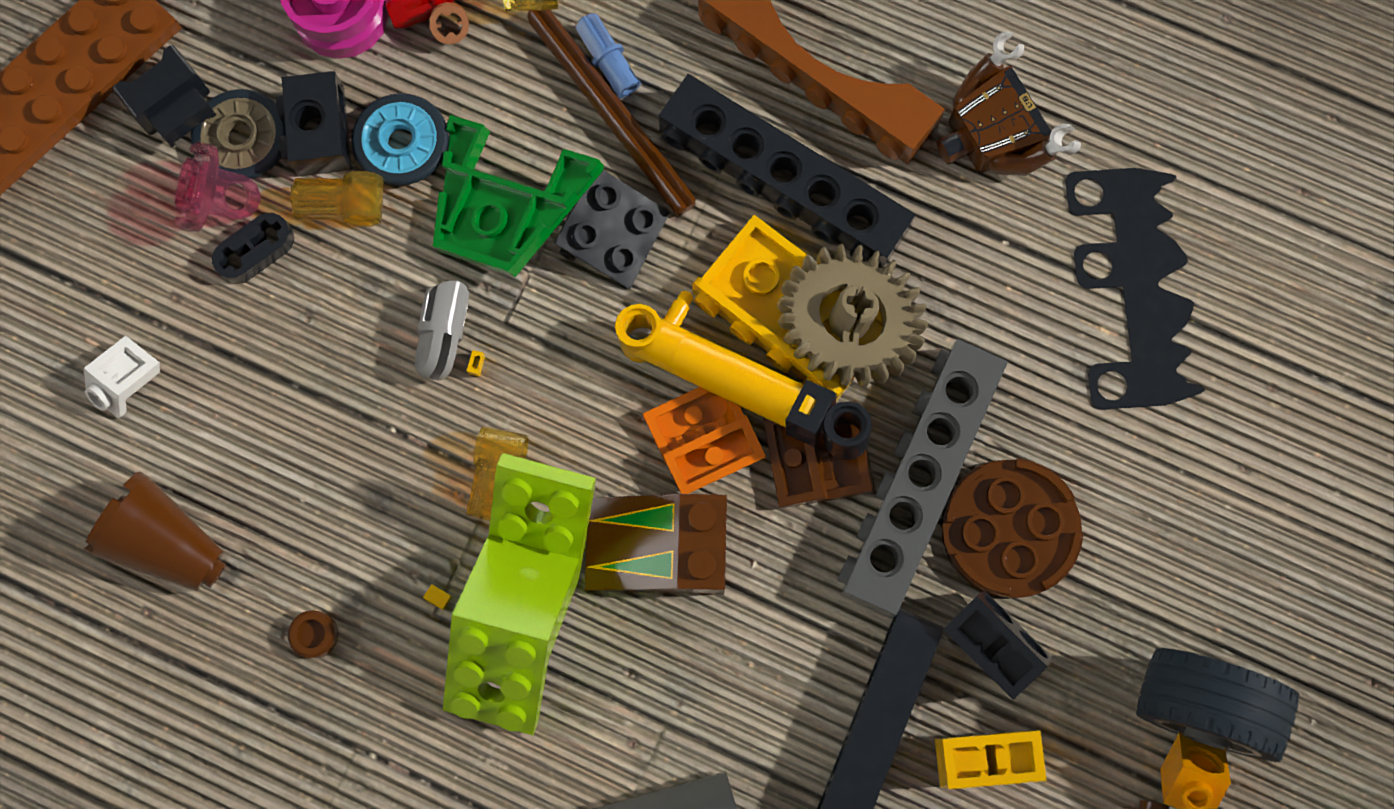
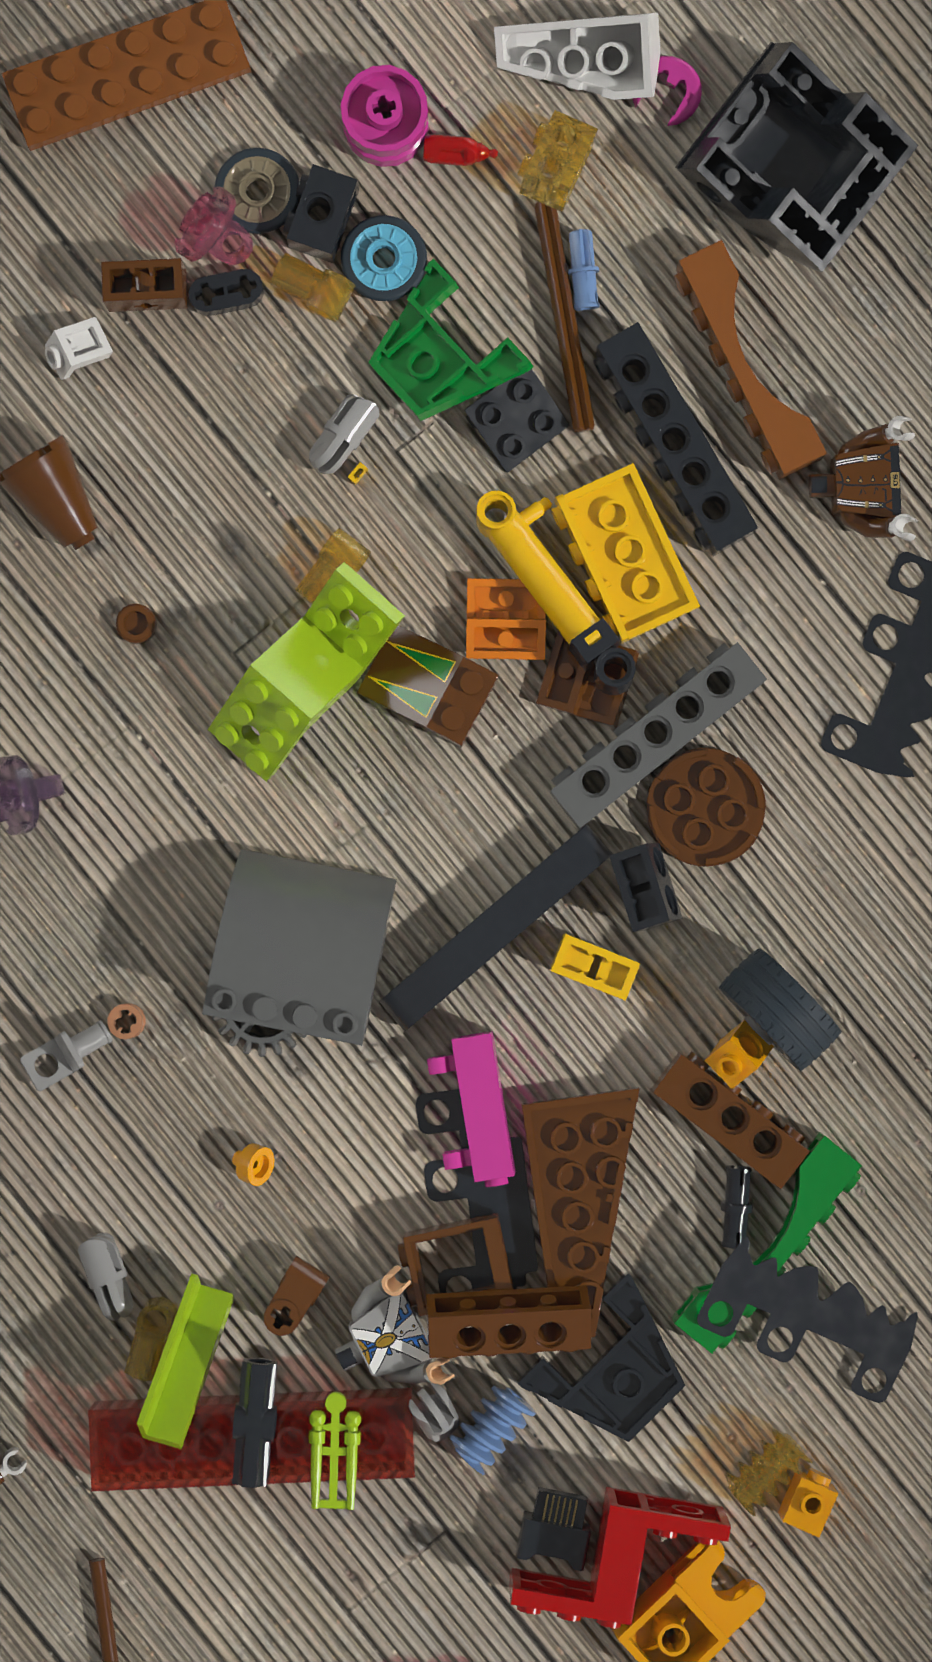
camera: 25 degrees right, 10 degrees up
(160, 278) = (144, 285): none -> reddish brown brick
(167, 97) = (214, 133): black piece -> none
(437, 597) = (243, 642): yellow piece -> none
(451, 36) = (472, 167): nougat bush -> none
(871, 291) = (689, 564): dark tan gear -> none

